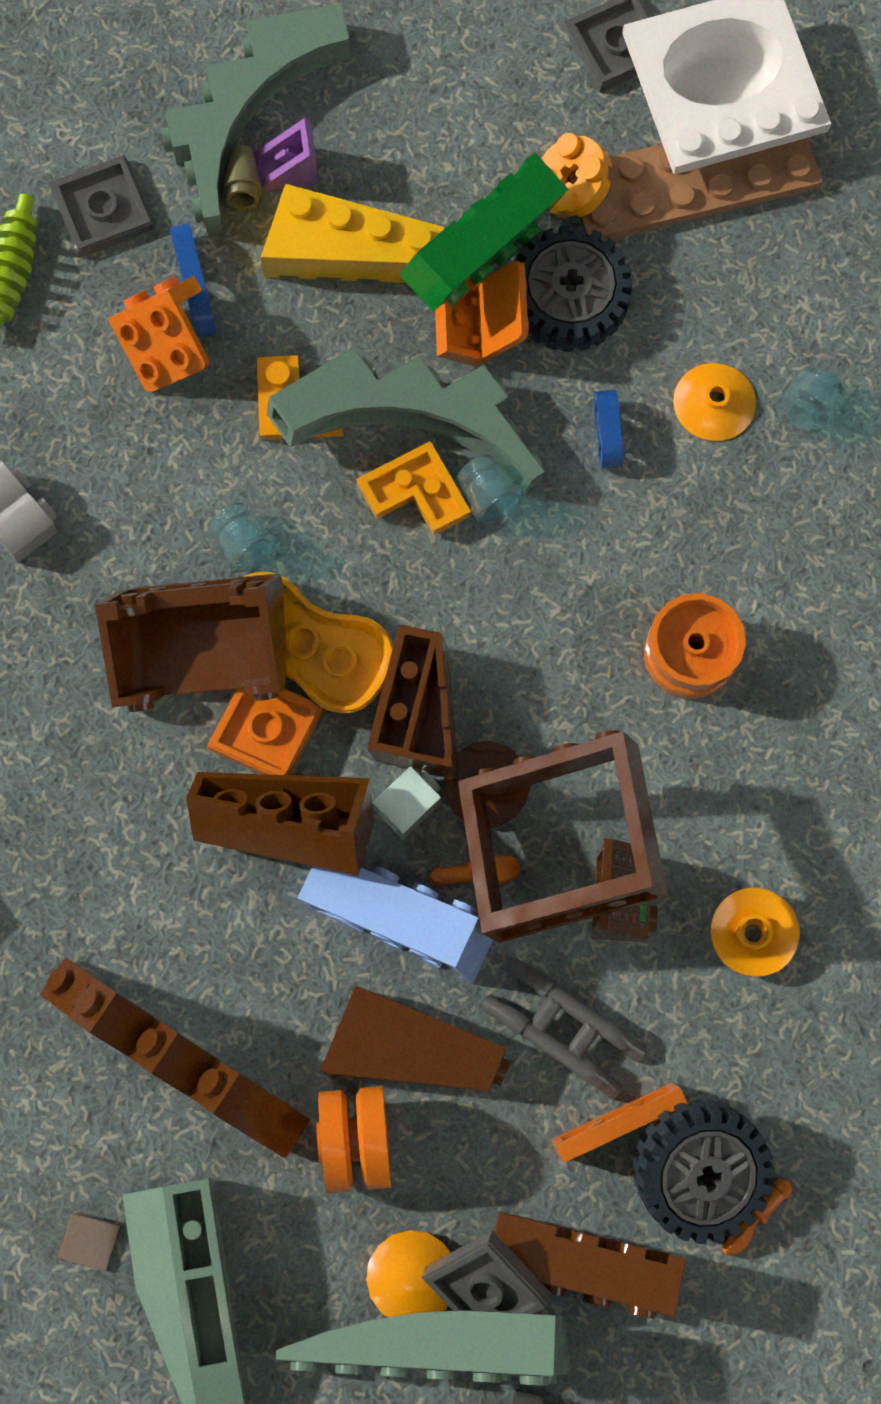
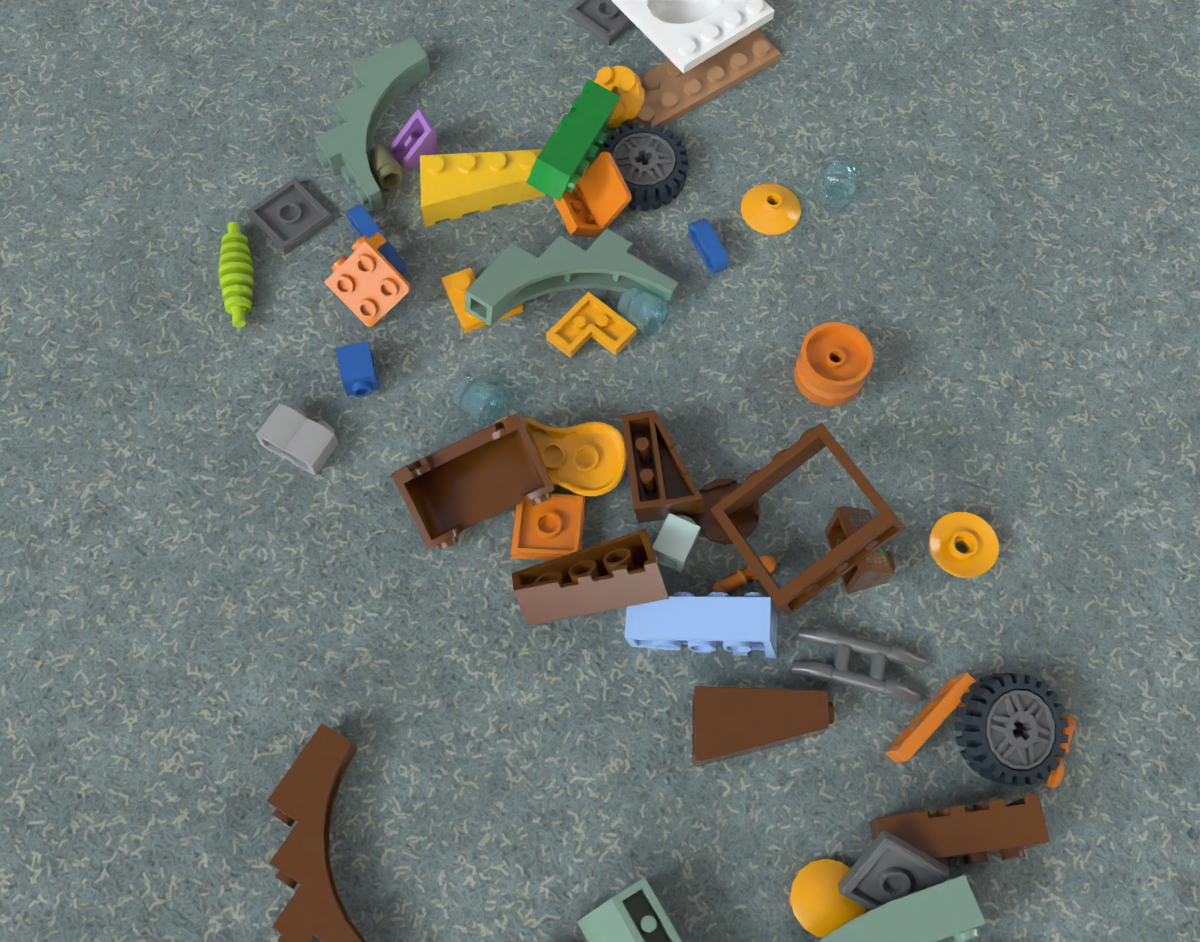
camera: 20 degrees left, 10 degrees down
(111, 446) = (357, 369): none -> blue brick
(174, 1058) = (579, 790): reddish brown arch -> none
(351, 1140) = (745, 803): orange wheel -> none

